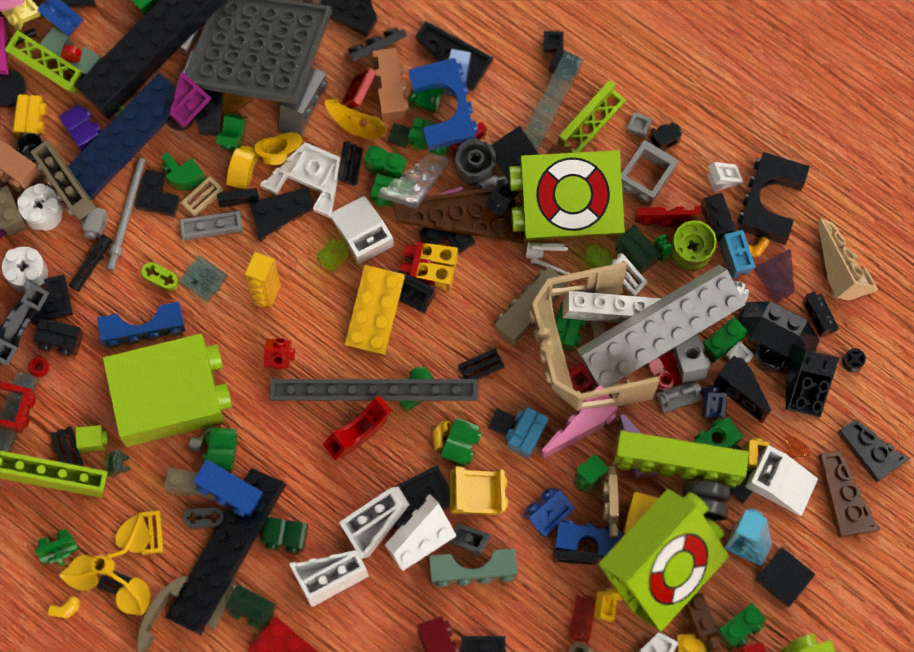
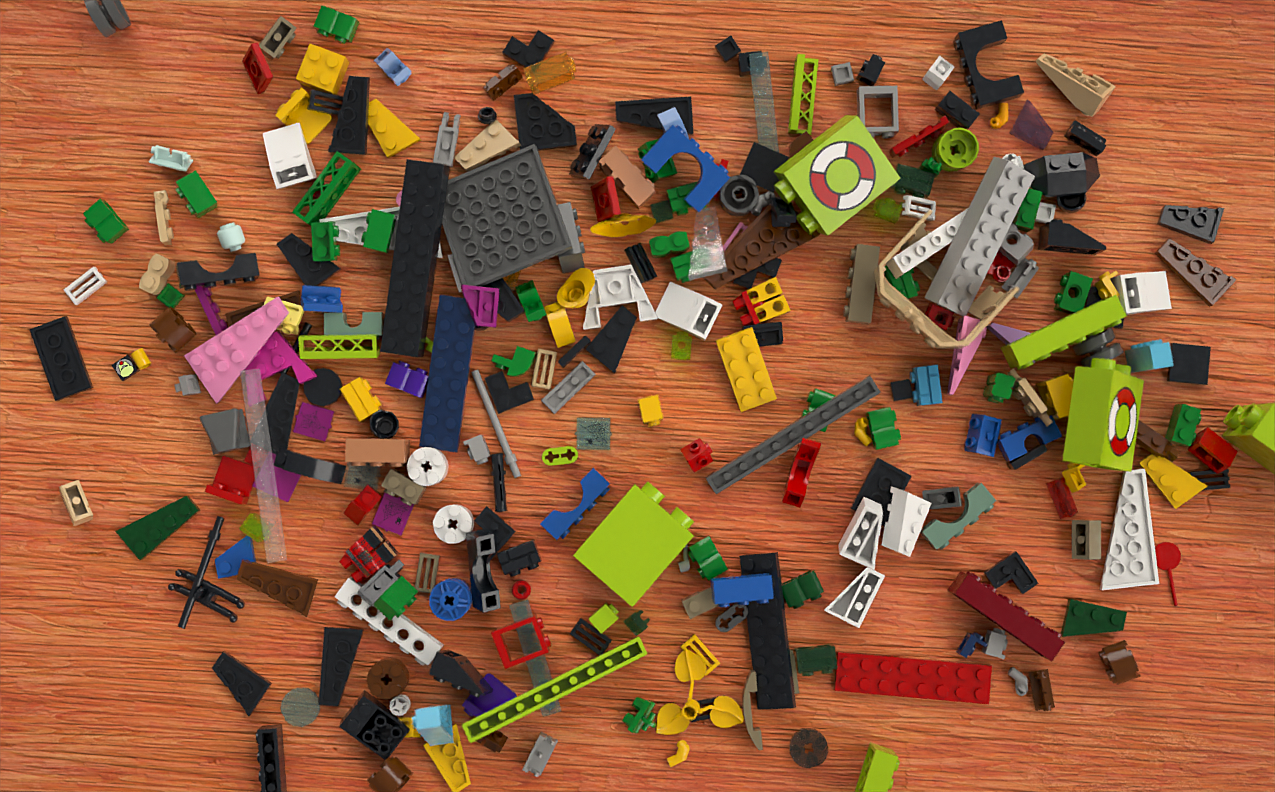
camera: 30 degrees left, 15 degrees up
(64, 181) = (432, 435): dark tan brick -> none
(71, 54) = (358, 327): red tile -> none
(477, 492) = (922, 457): yellow panel -> none
(493, 352) = (863, 343): black tile -> none
(536, 251) = (836, 236): white plant -> none
(714, 401) = (1050, 263): dark blue bracket -> none
(736, 254) = (991, 132): dark azure hinge -> none
(796, 447) = (1133, 257): clear orange tile -> none
(808, 379) = (1111, 197): black slope -> none
(856, 356) = (1137, 156): black wheel -> none

